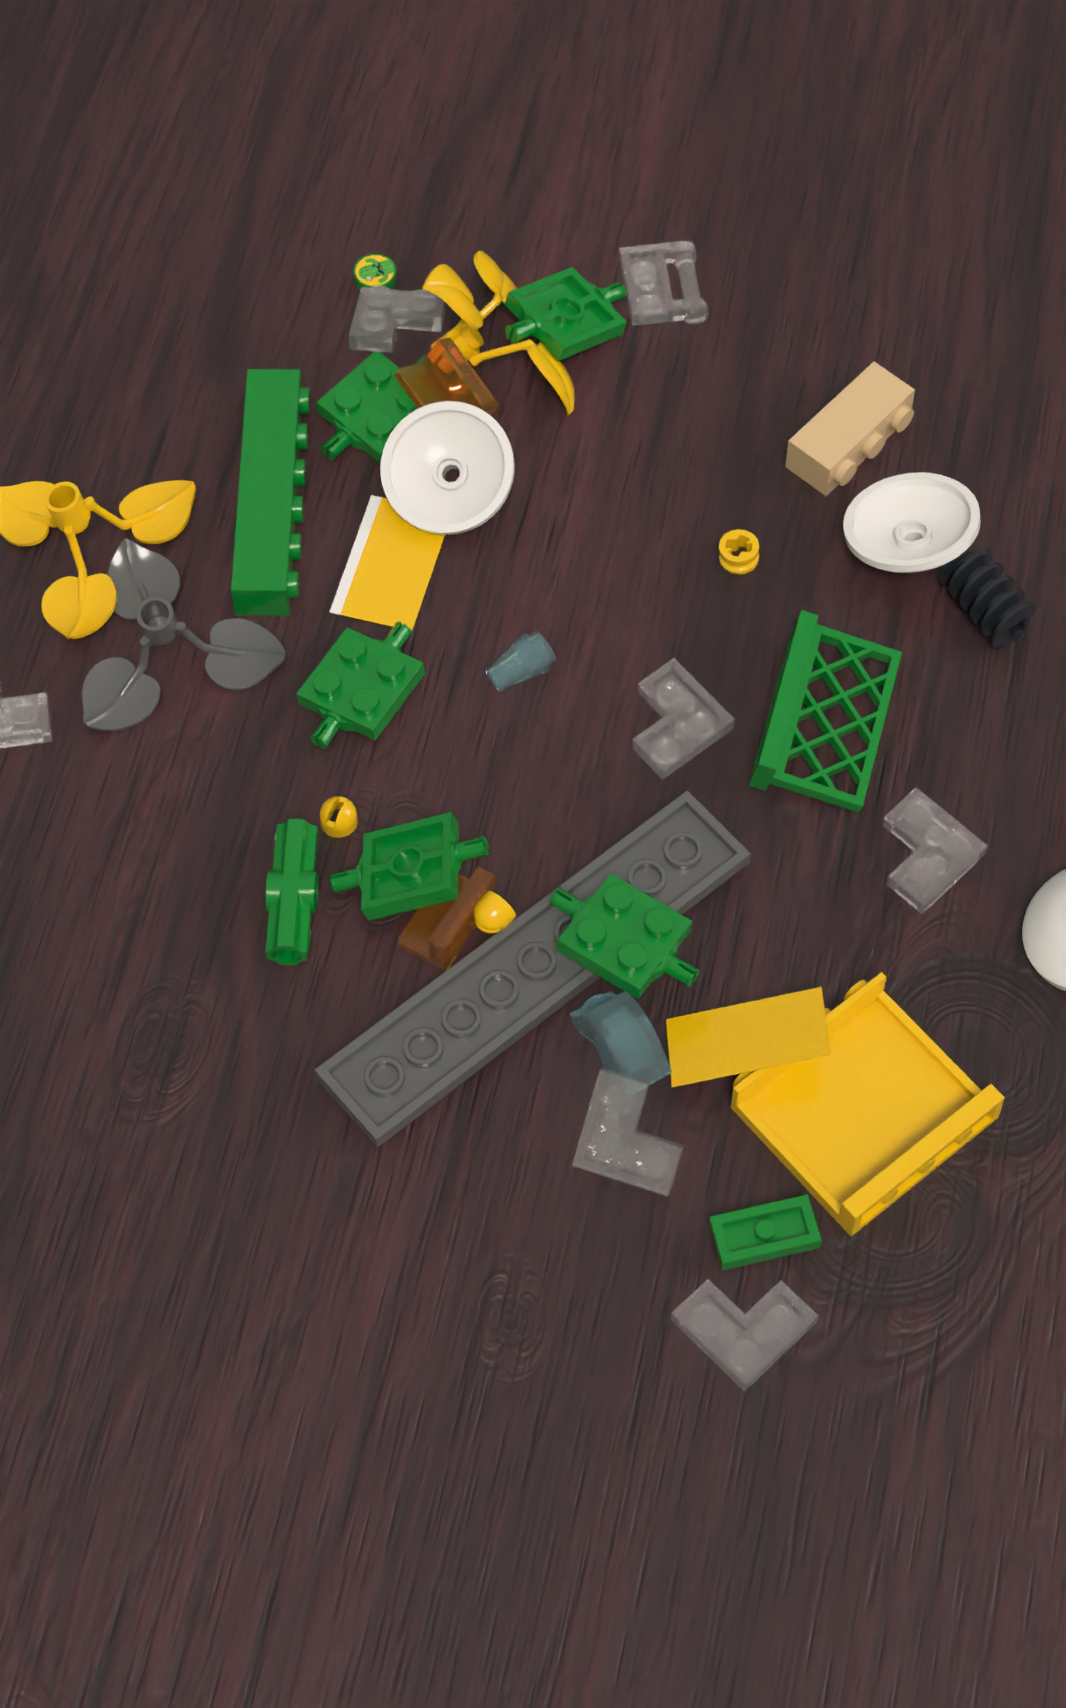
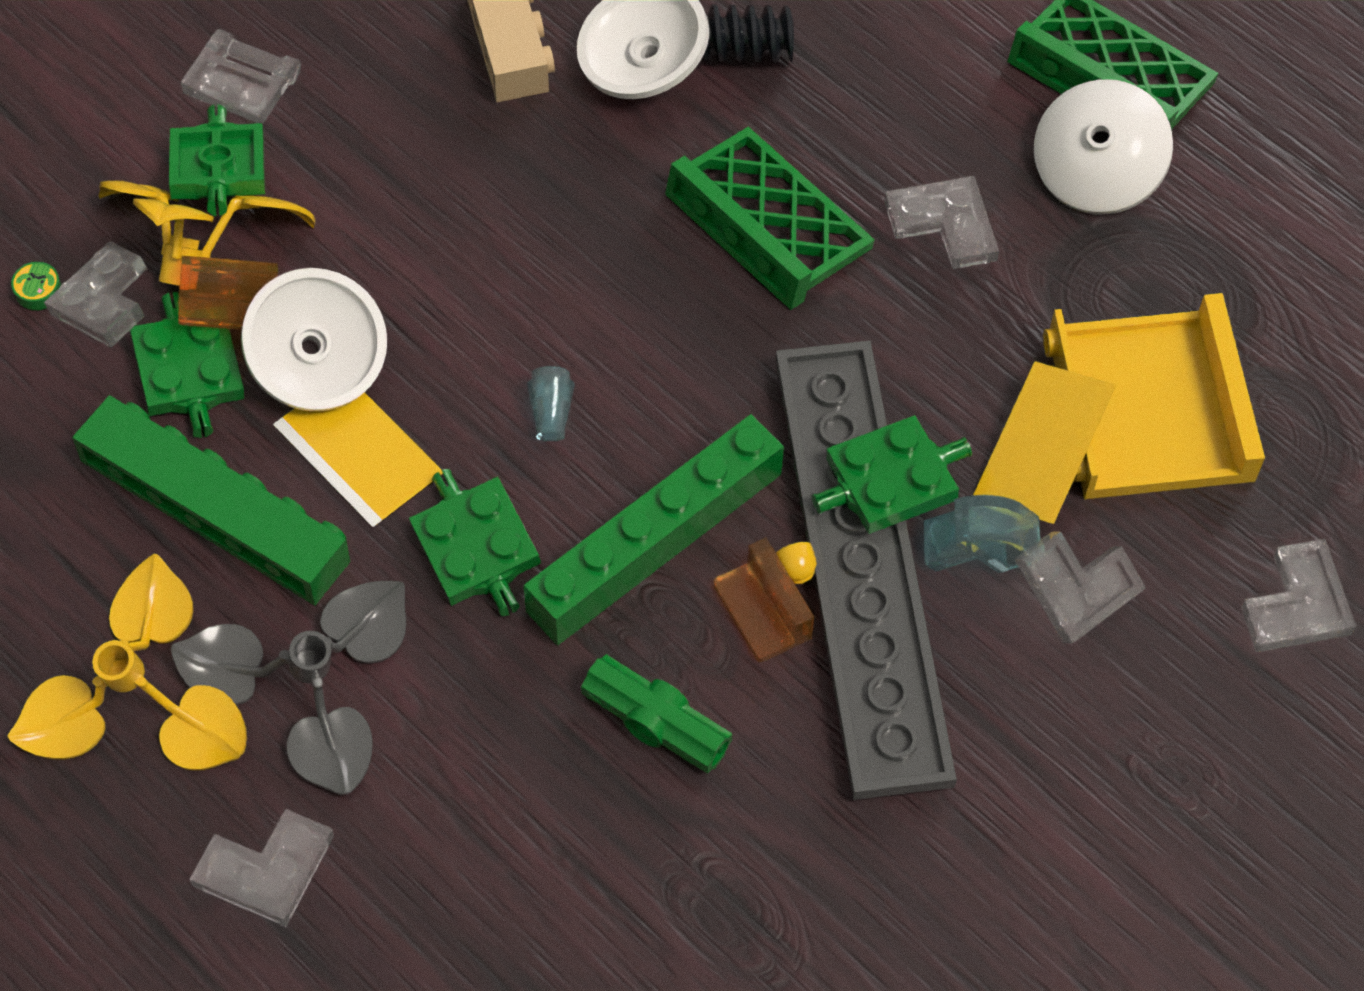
camera: 60 degrees left, 0 degrees up
(346, 819) = (590, 641): yellow hinge -> none
(410, 866) = (704, 600): green plate -> none
(482, 800) = (653, 529): none -> green brick
(689, 720) = (705, 310): clear plate -> none
(746, 560) = (559, 168): yellow bush -> none
(764, 1232) = (1223, 536): green plate -> none

